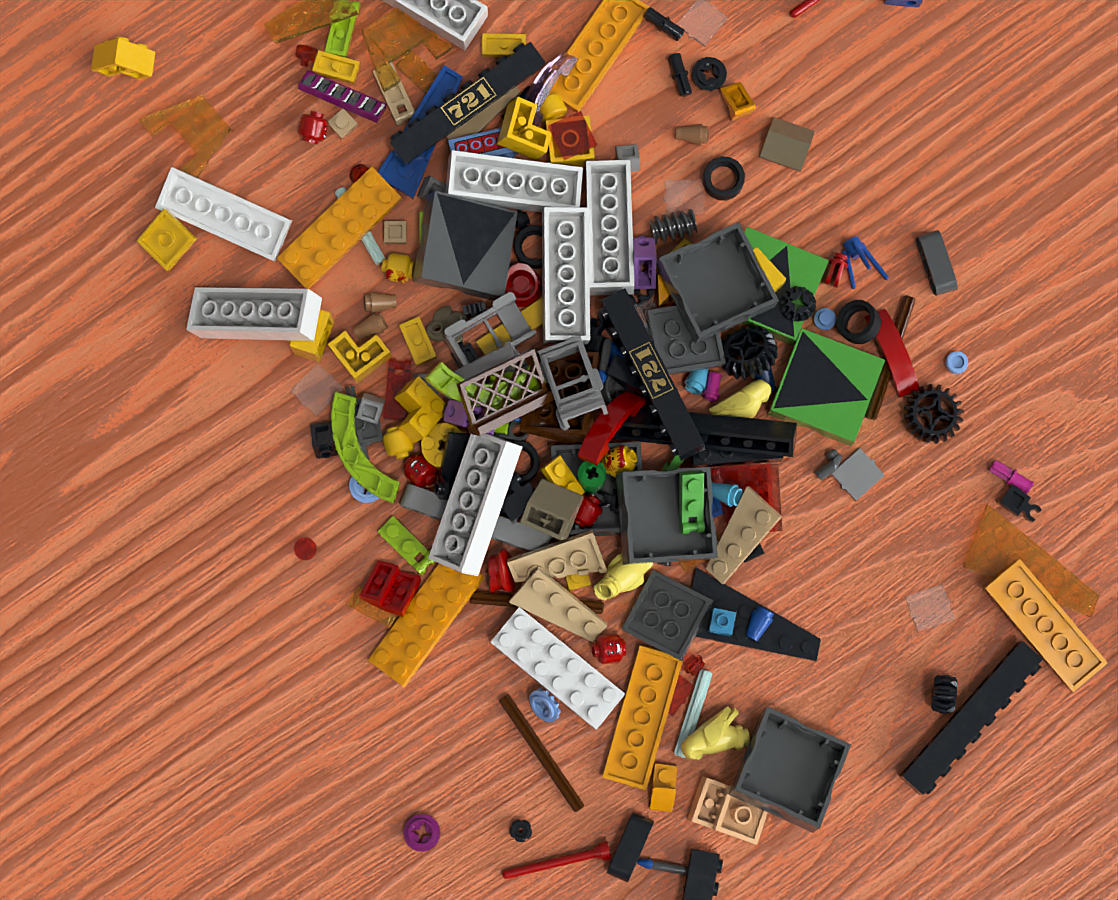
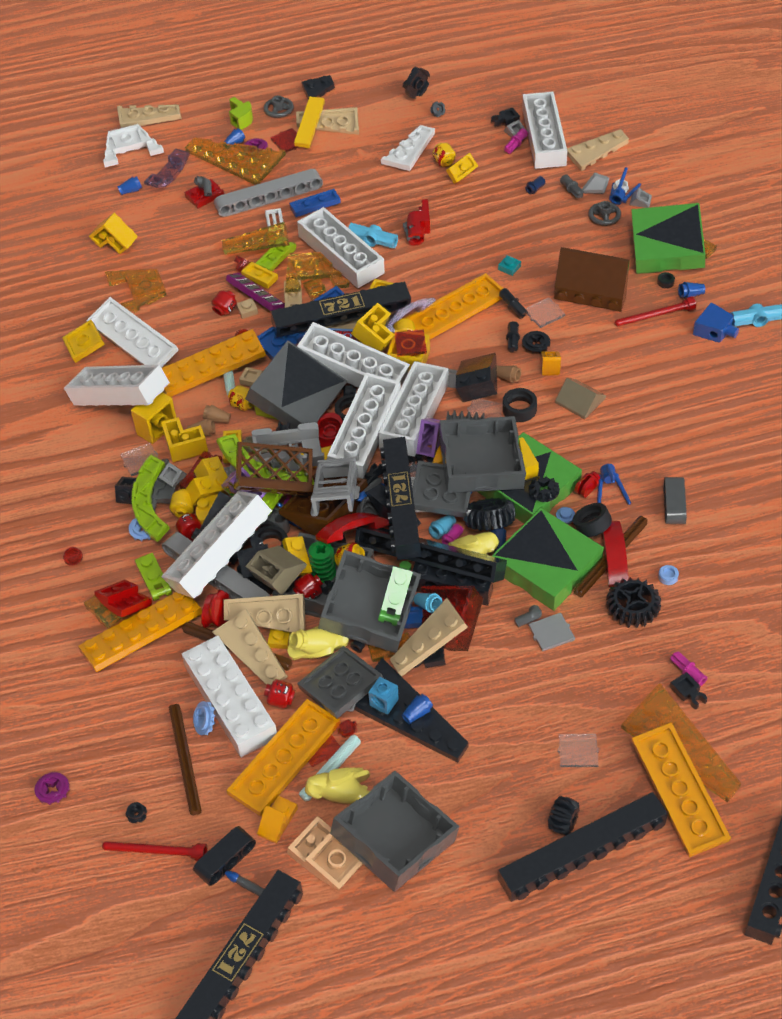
camera: 25 degrees right, 30 degrees down
(661, 151) = (477, 377): none -> black slope

